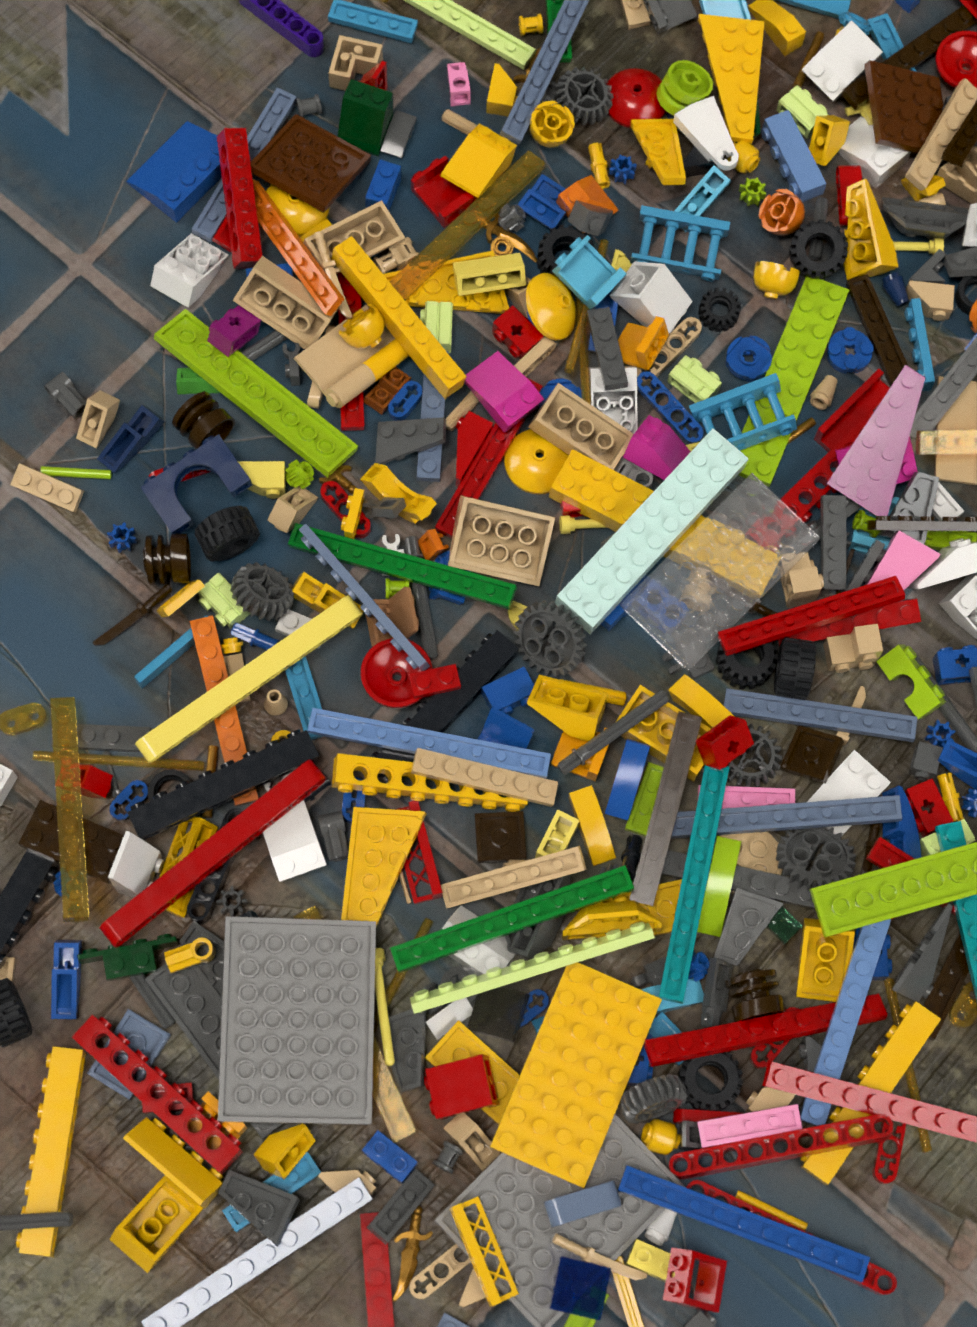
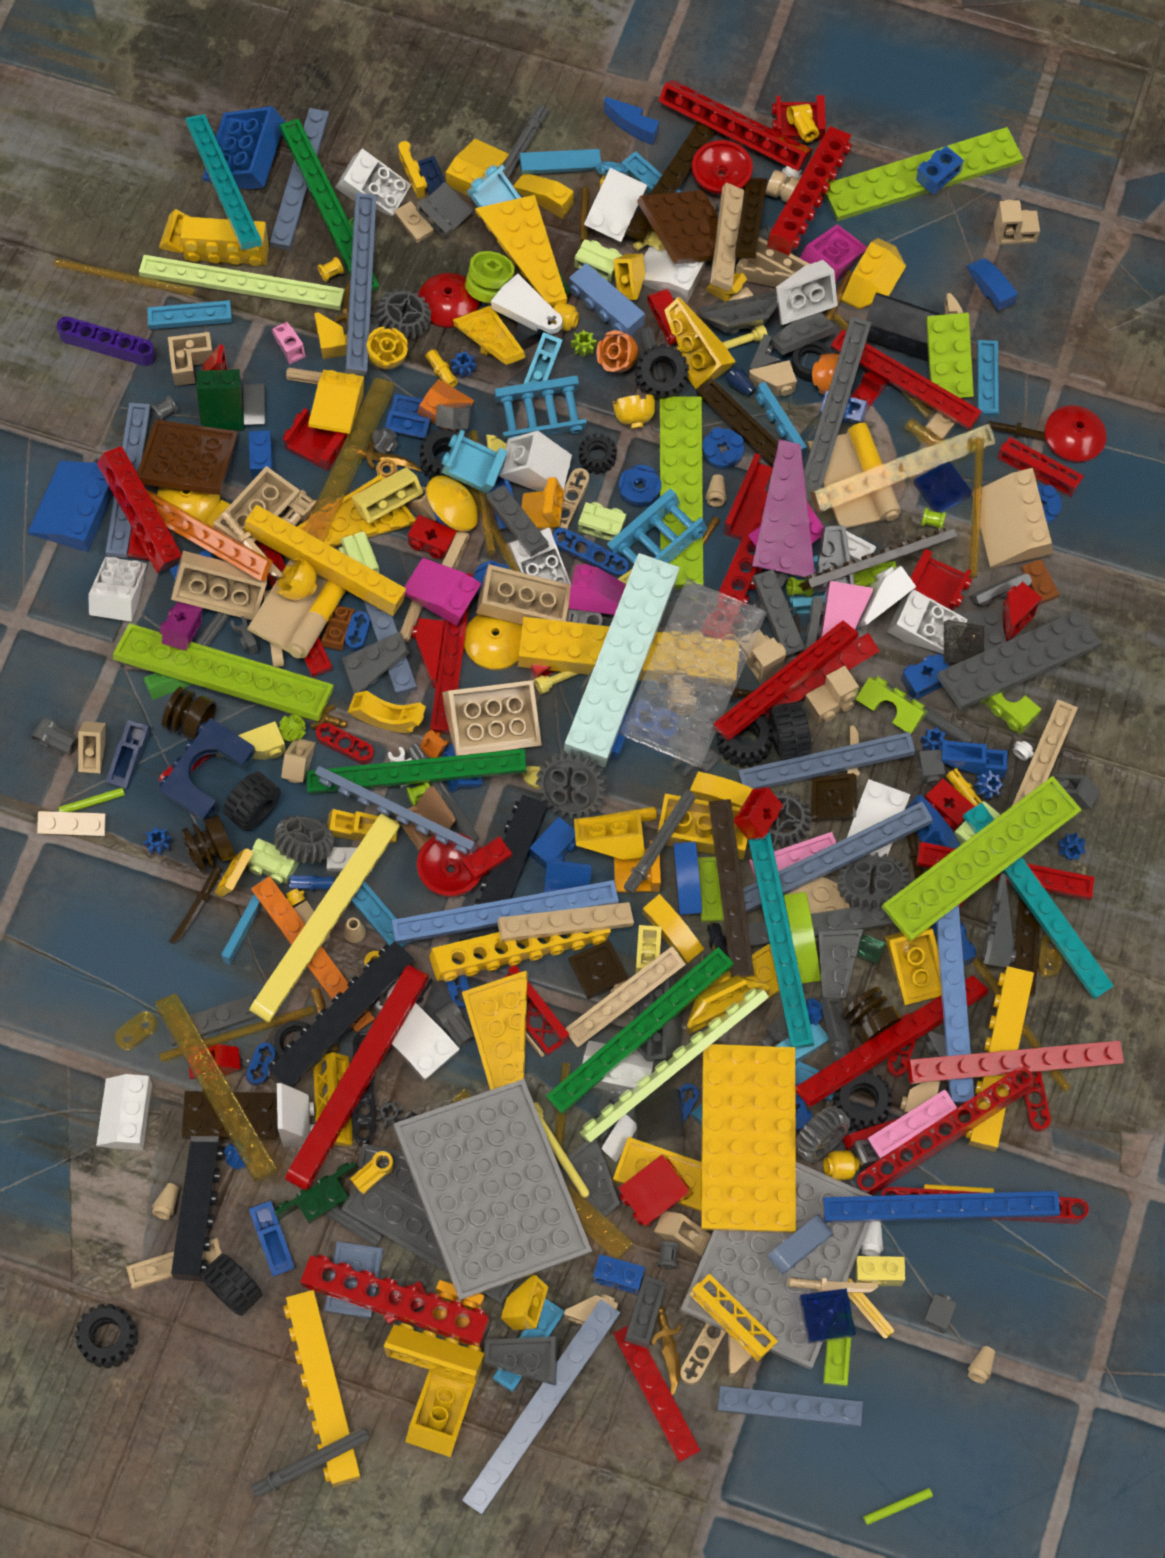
camera: 20 degrees left, 5 degrees down
(354, 504) = (352, 735): yellow plate -> none
(387, 507) = (382, 727): dark grey plate -> none
(708, 1282) = (931, 1267): red window -> none

